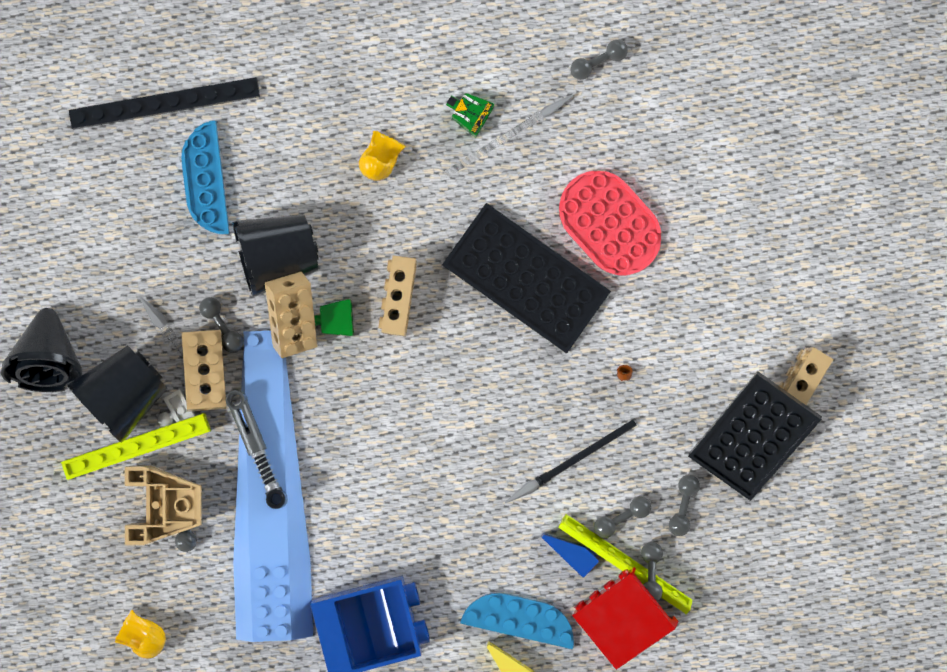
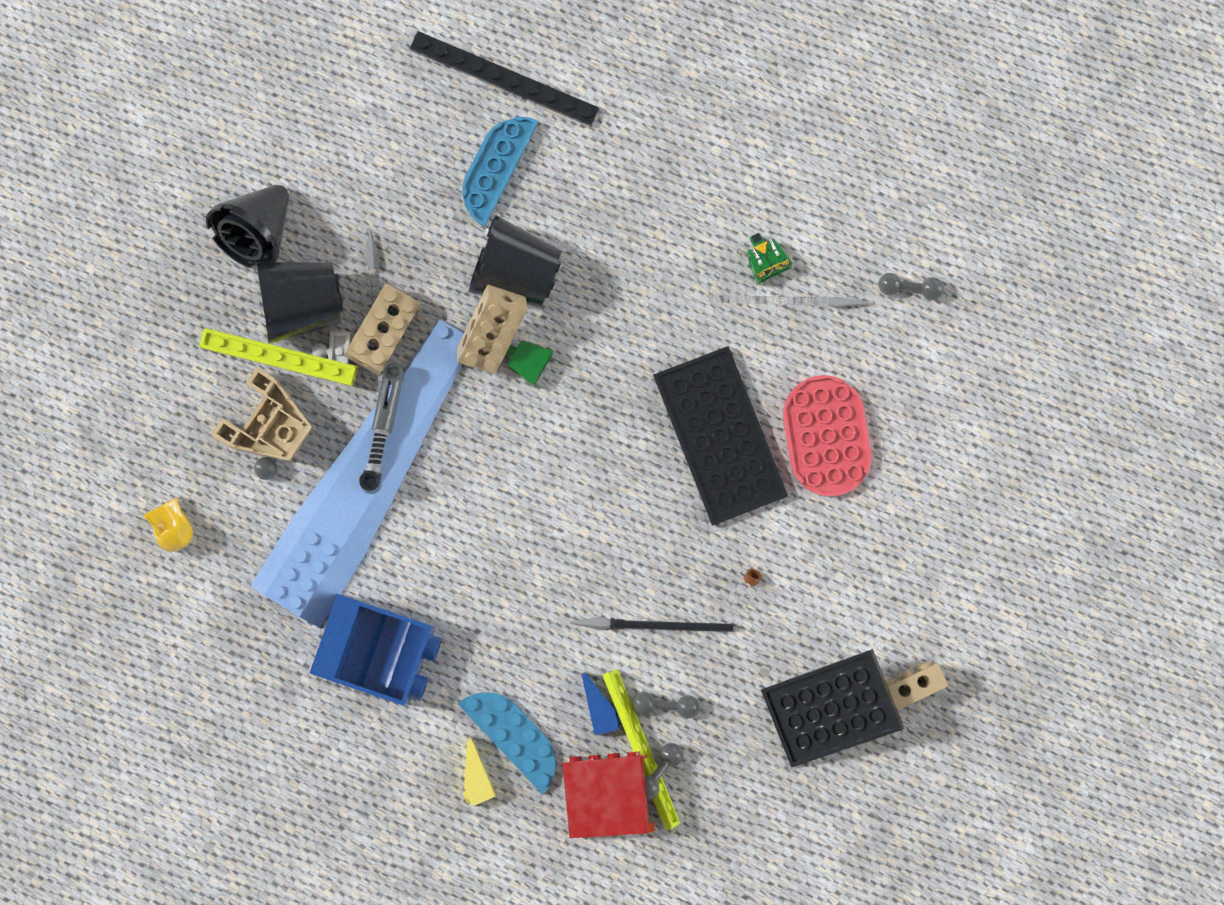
camera: 35 degrees right, 5 degrees down
(210, 309) = (424, 280): dark grey piece -> none
(380, 157) = (660, 245): yellow piece -> none
(408, 267) = (611, 348): tan brick -> none
(680, 524) = (713, 745): dark grey piece -> none

